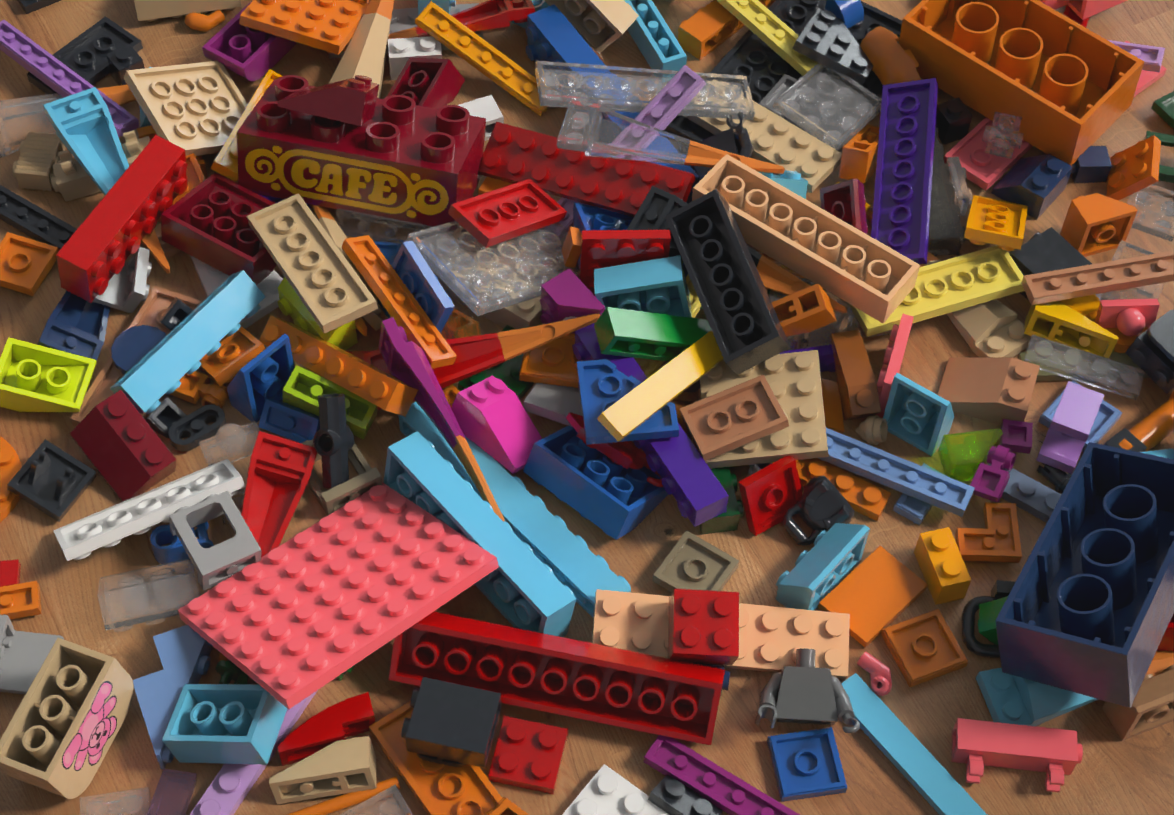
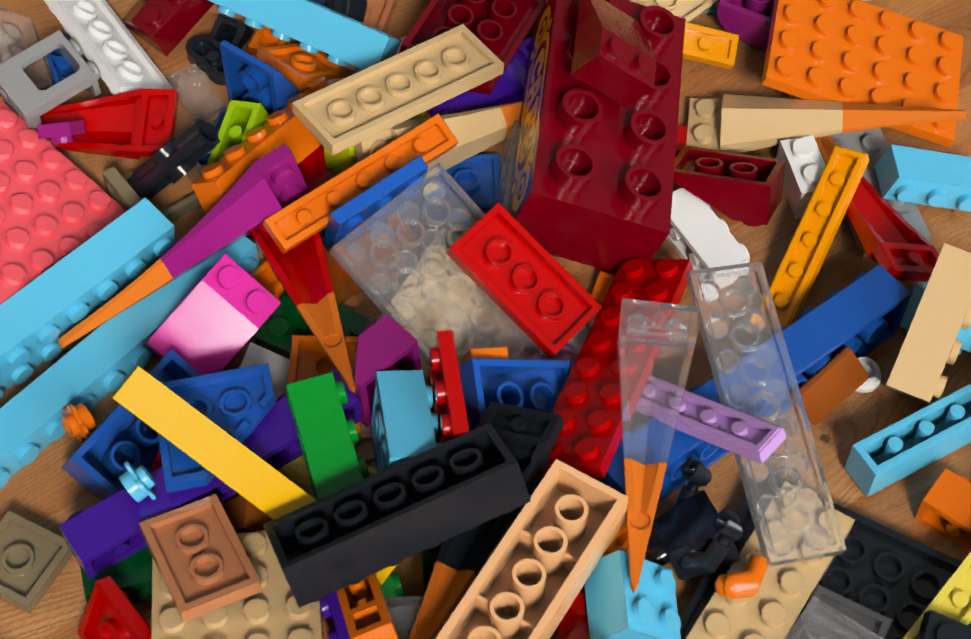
camera: 85 degrees right, 0 degrees up
(275, 528) = (62, 131): none -> magenta plate
(585, 517) = (78, 421): none -> orange plate
(672, 449) = (138, 482): none -> medium azure plate
(762, 130) = (743, 583): none -> orange arm

